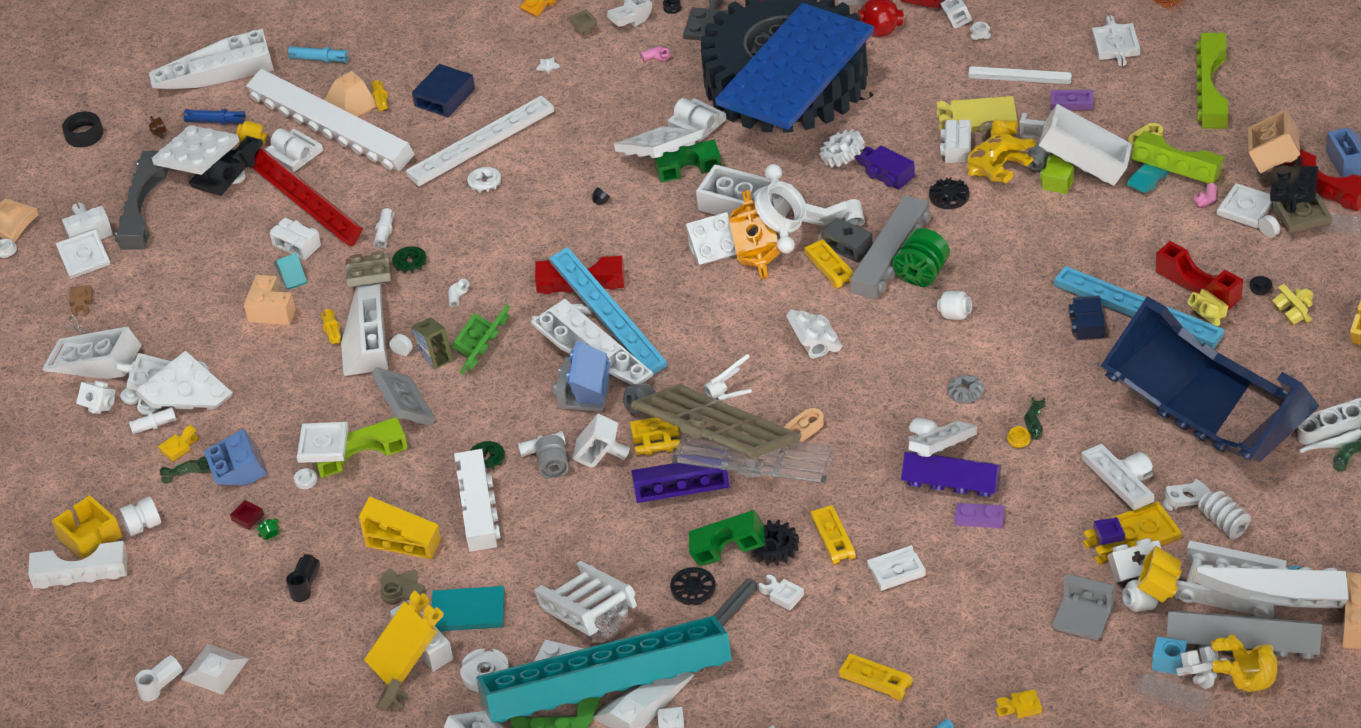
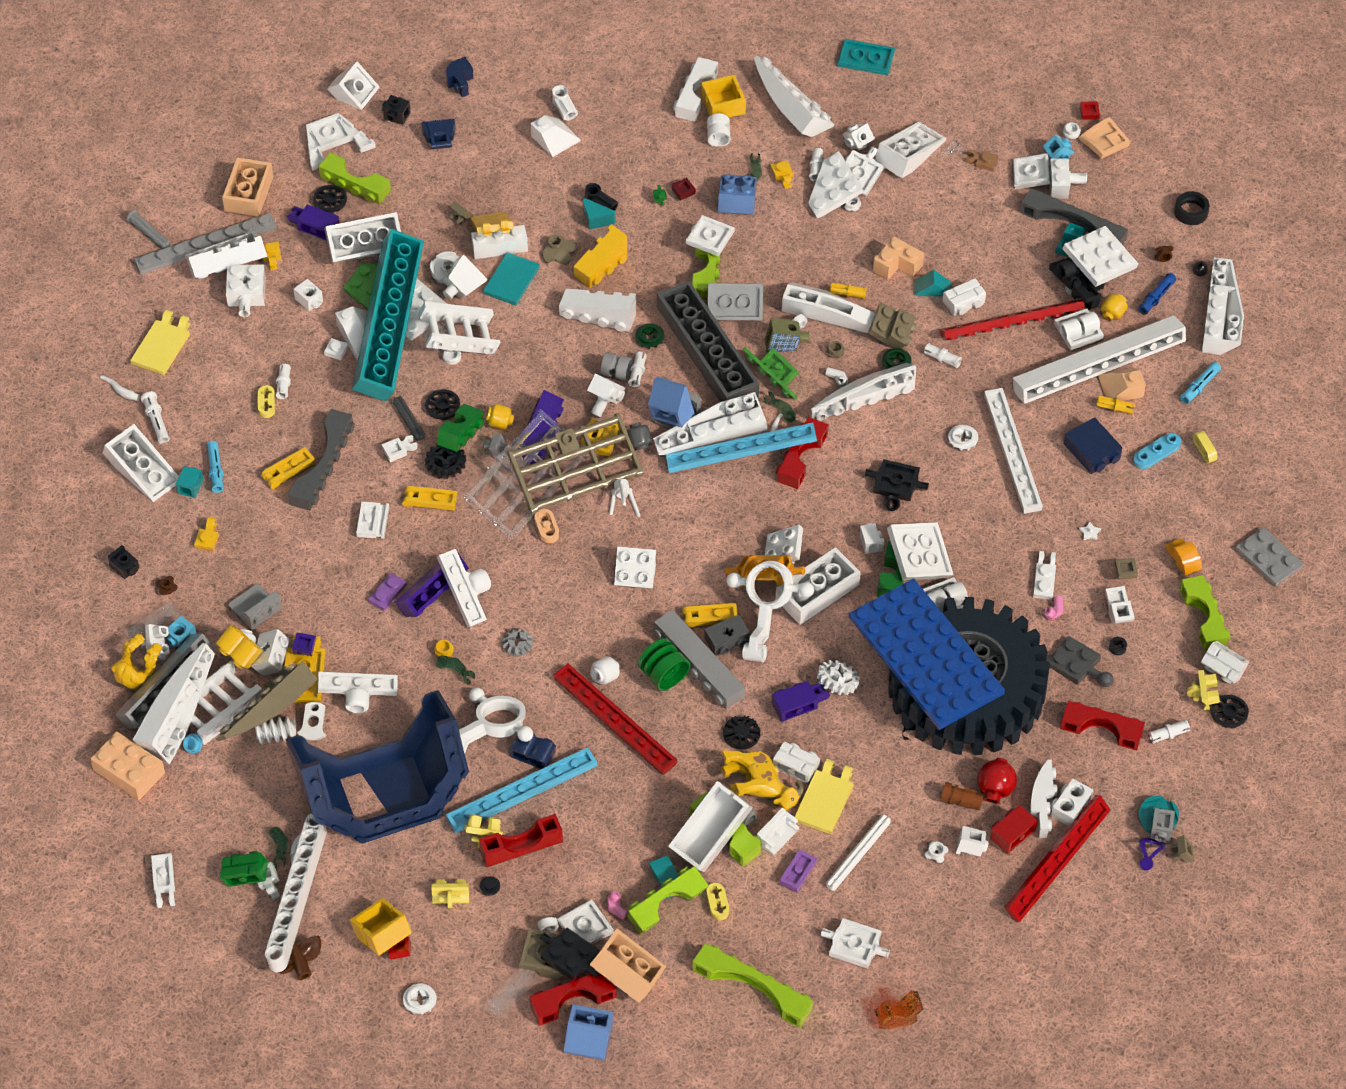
camera: 110 degrees right, 10 degrees up
(44, 239) = (1058, 148): none -> medium azure brick
(63, 471) = (791, 101): none -> white wedge
(163, 102) = (1203, 270): none -> black hinge
(164, 198) = (1071, 233): none -> teal slope
(330, 570) = (598, 215): none -> teal slope
(399, 25) = (1205, 446): none -> light yellow beam
(420, 55) = (1152, 455): none -> medium azure plate
(421, 306) = (835, 345): none -> dark tan plate
(466, 255) = (867, 390): none -> white wedge
(477, 395) = (706, 342): none -> dark grey brick
(503, 637) = (462, 278): none -> white torso
(524, 314) = (786, 409): none -> clear green arm
(570, 201) = (896, 479): none -> black plate
(620, 73) = (1045, 577): none -> white hinge
(657, 190) = (871, 538): none -> white brick
(681, 521) = (499, 416): none -> yellow head
(725, 507) = (495, 445): none -> light grey tile
(894, 641) = (306, 488): none -> dark grey arch
(912, 36) = (964, 797): none -> dark orange axle
(1003, 279) = (615, 719): none -> red plate
(1096, 353) = (483, 727): none -> white piece
(1115, 711) = (166, 590): none -> reddish brown plate
(1212, 514) = (271, 701): none -> dark tan wedge

